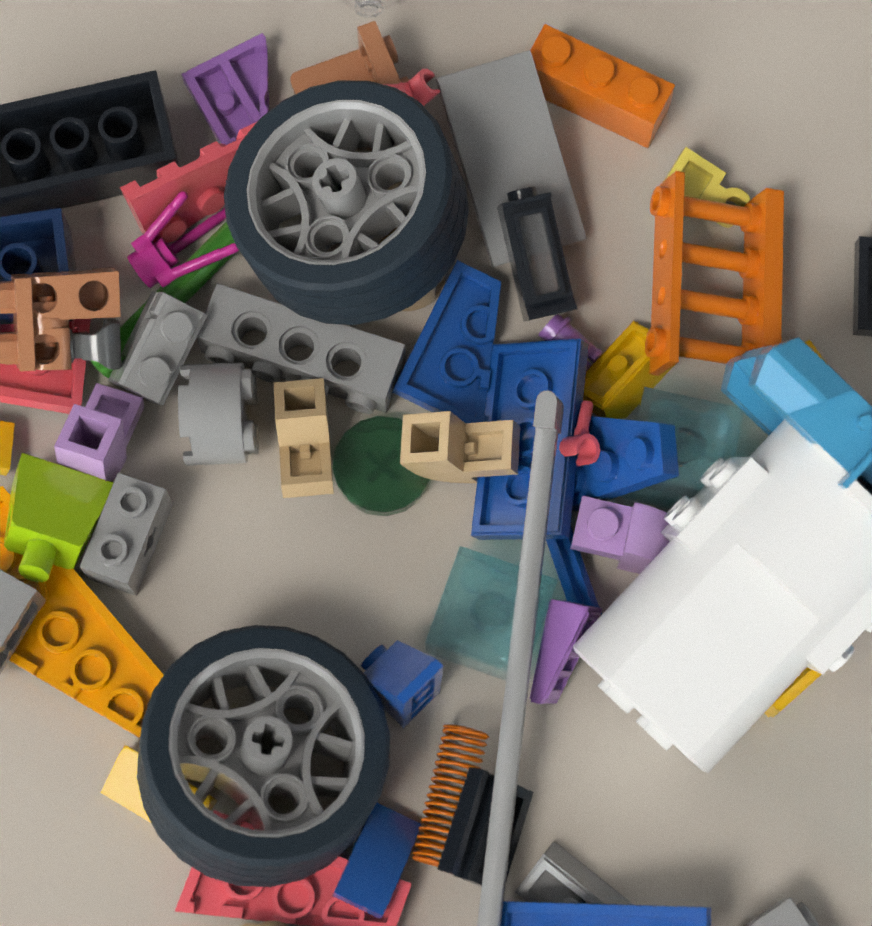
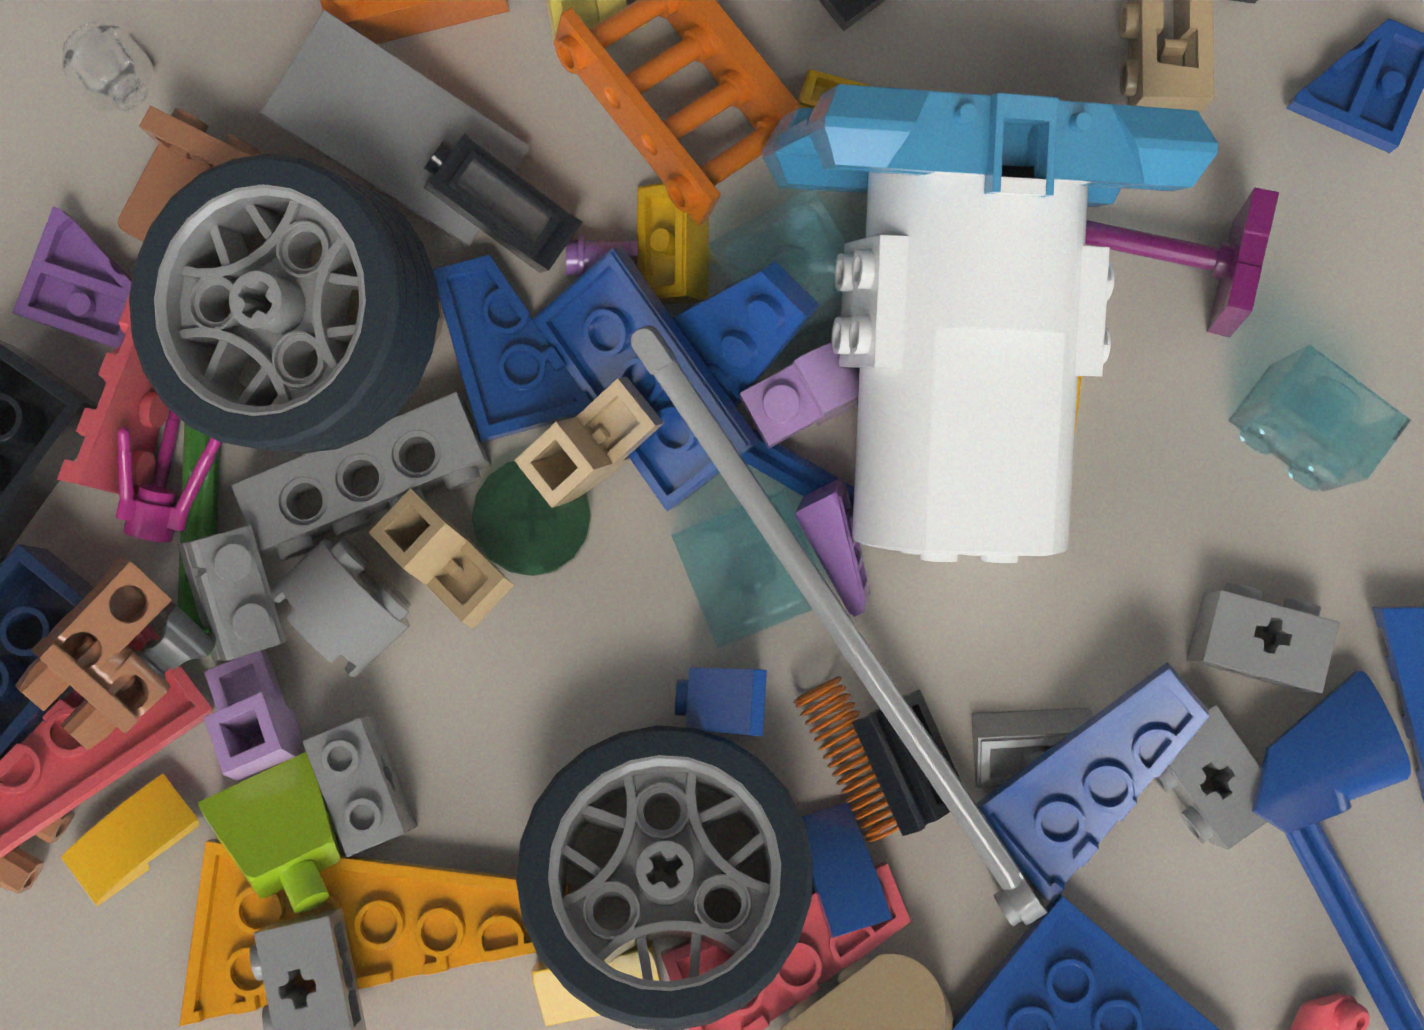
camera: 40 degrees left, 10 degrees up
(417, 87) = (249, 139): coral hand -> none
(582, 442) = (699, 347): coral hand -> none

